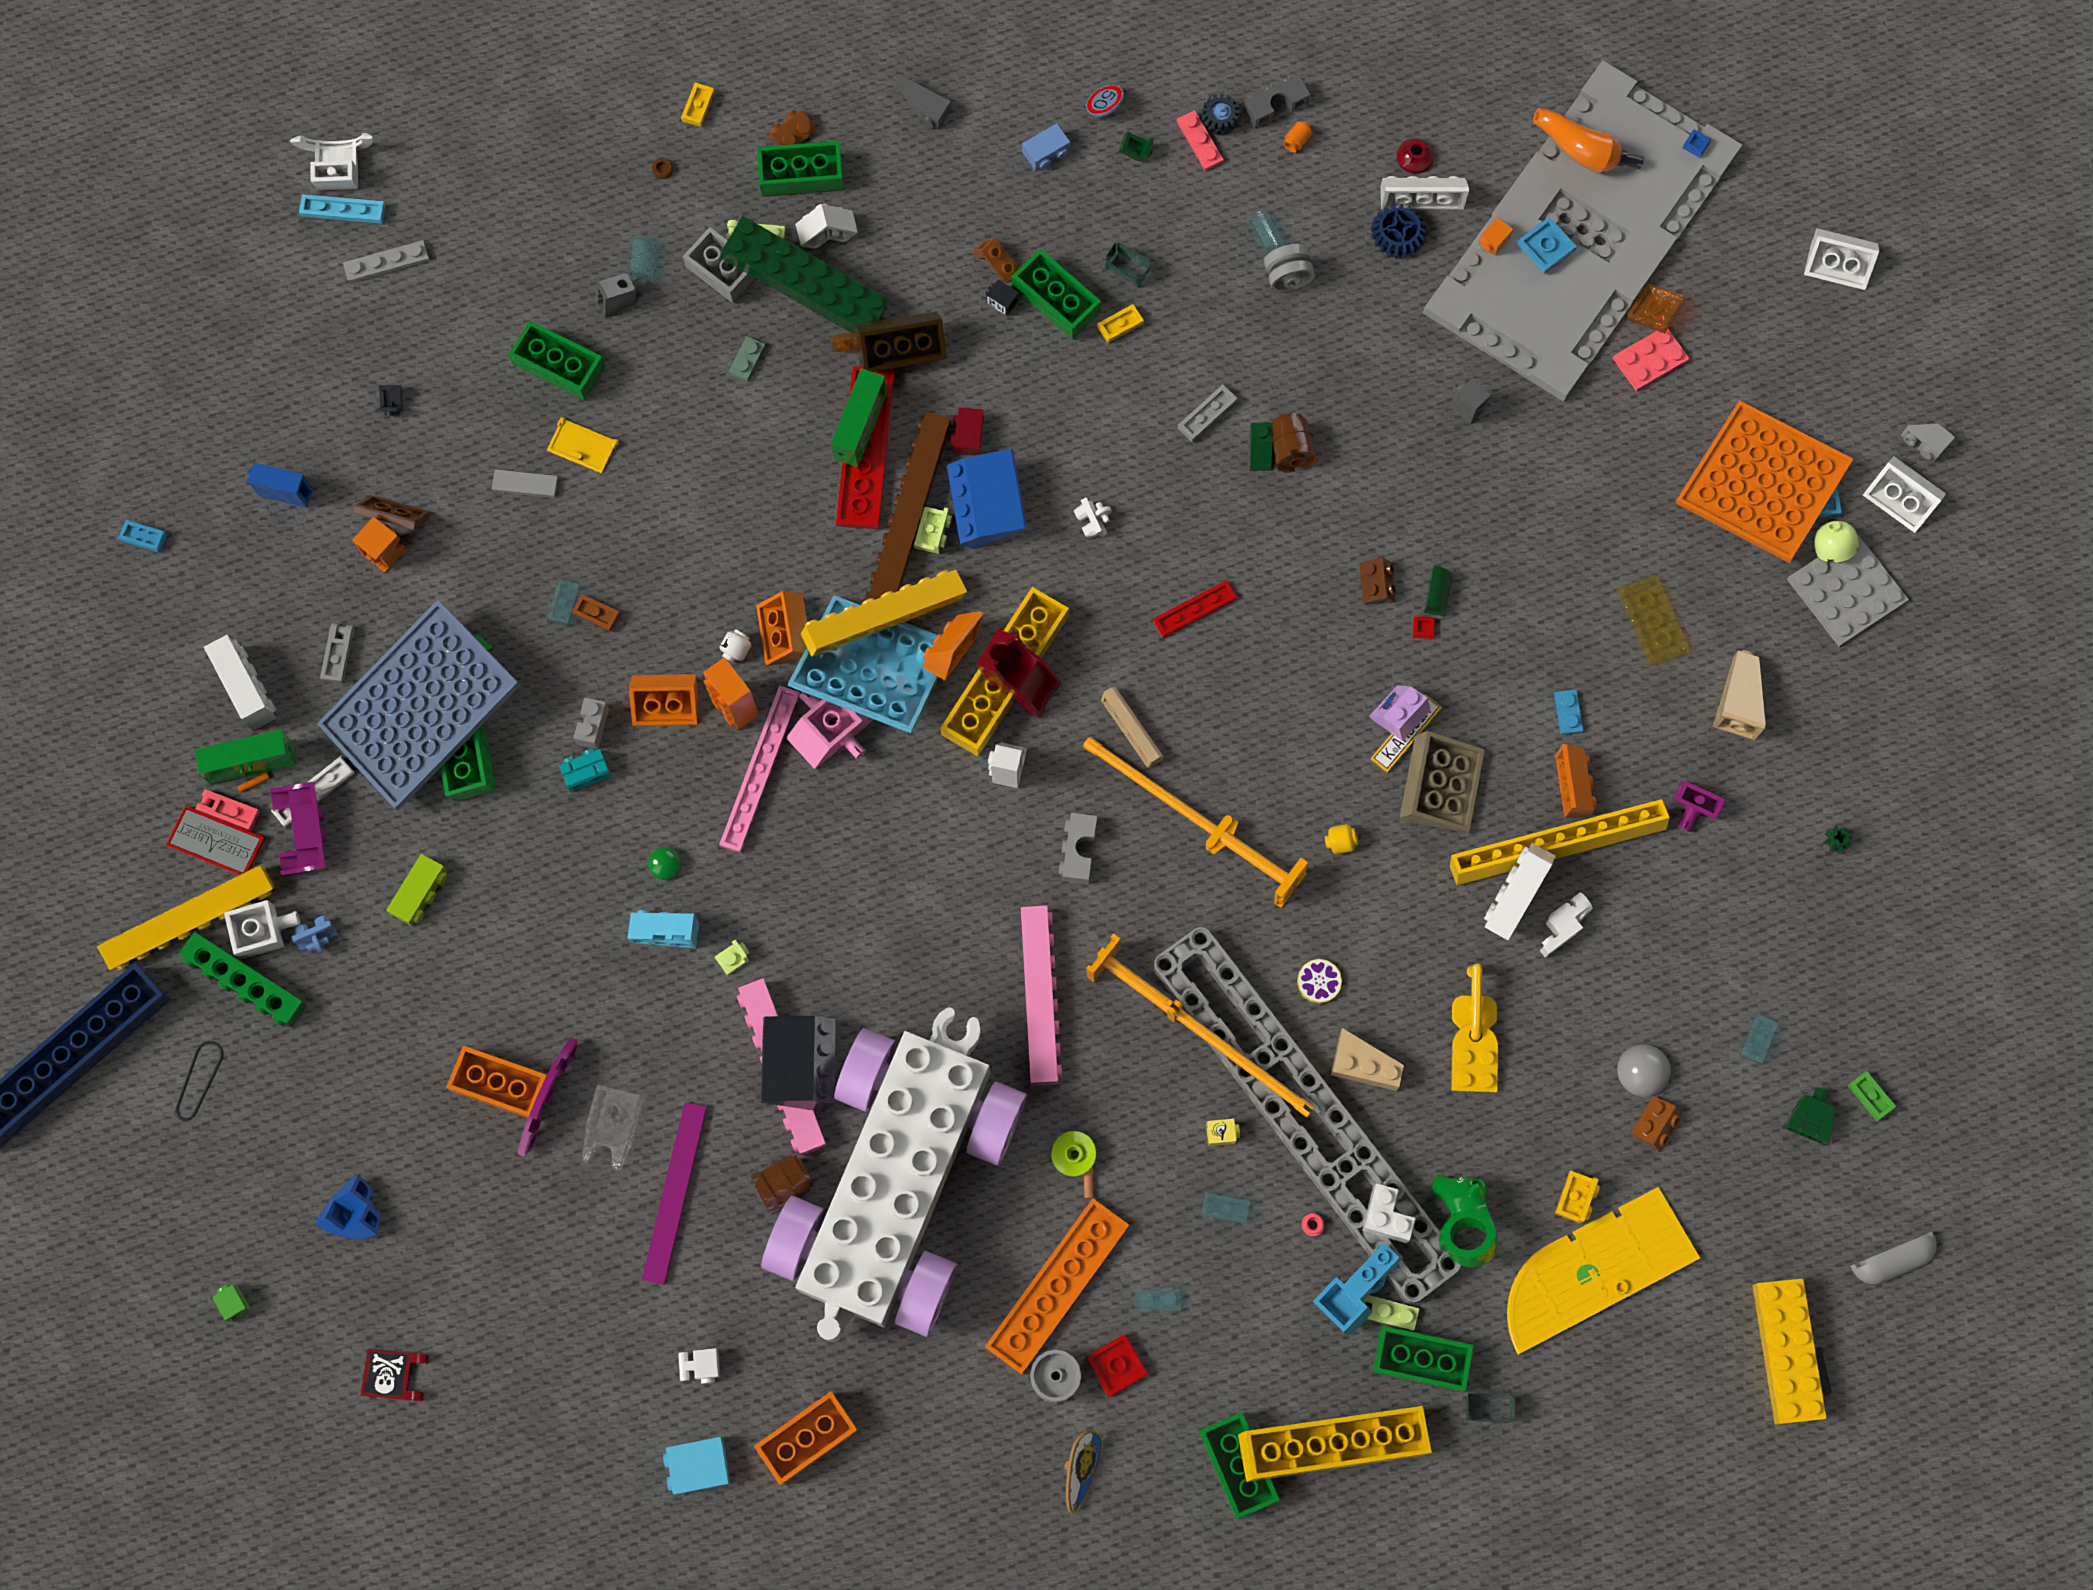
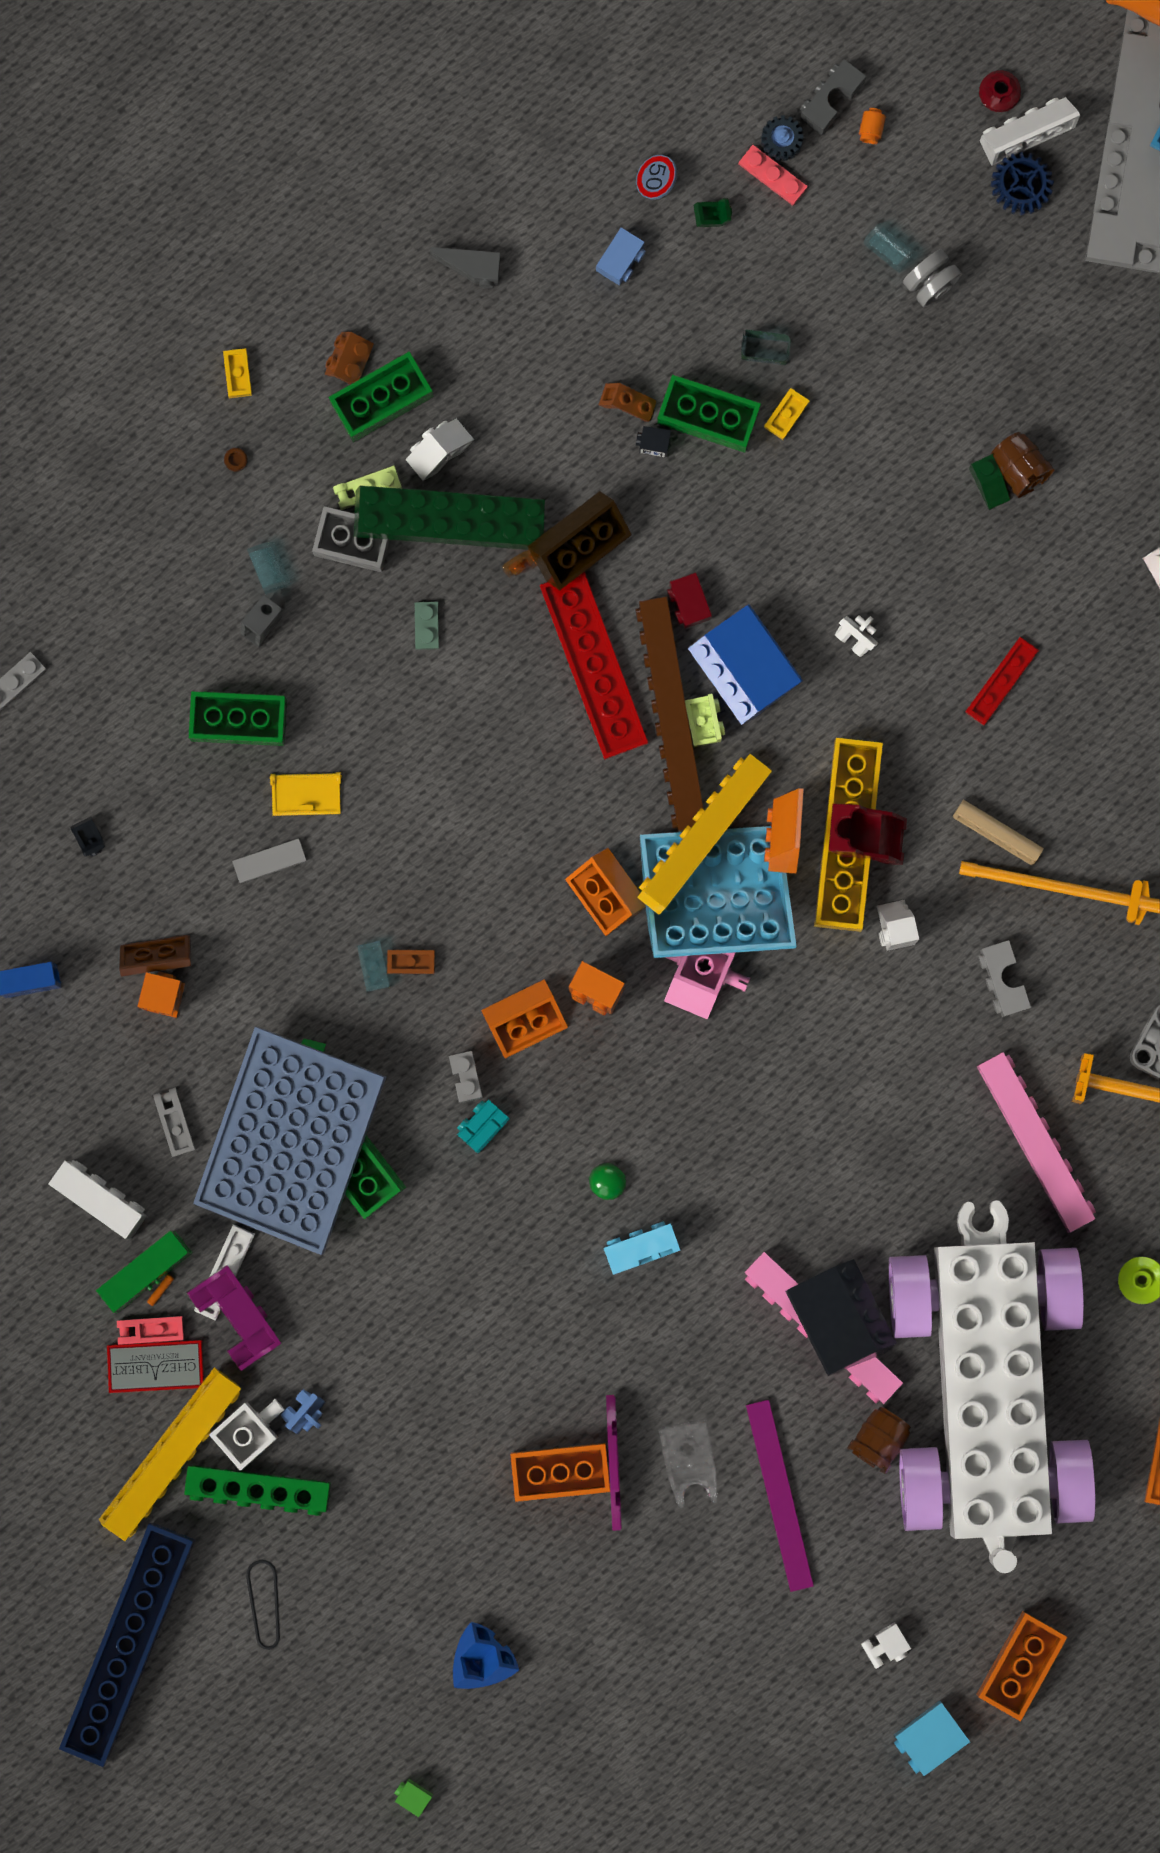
camera: 20 degrees left, 10 degrees up
(389, 1374) = (596, 1791): flag -> none
(417, 890) = (382, 1322): lime brick -> none
(733, 957) = (721, 1243): yellowish green bracket -> none
(735, 646) = (567, 932): white head -> none
(759, 769) = (654, 1044): bright pink plate -> none
(859, 417) = (578, 641): green brick -> none
(1207, 413) = (919, 470): light grey plate -> none
(1495, 236) = (1126, 149): orange brick -> none

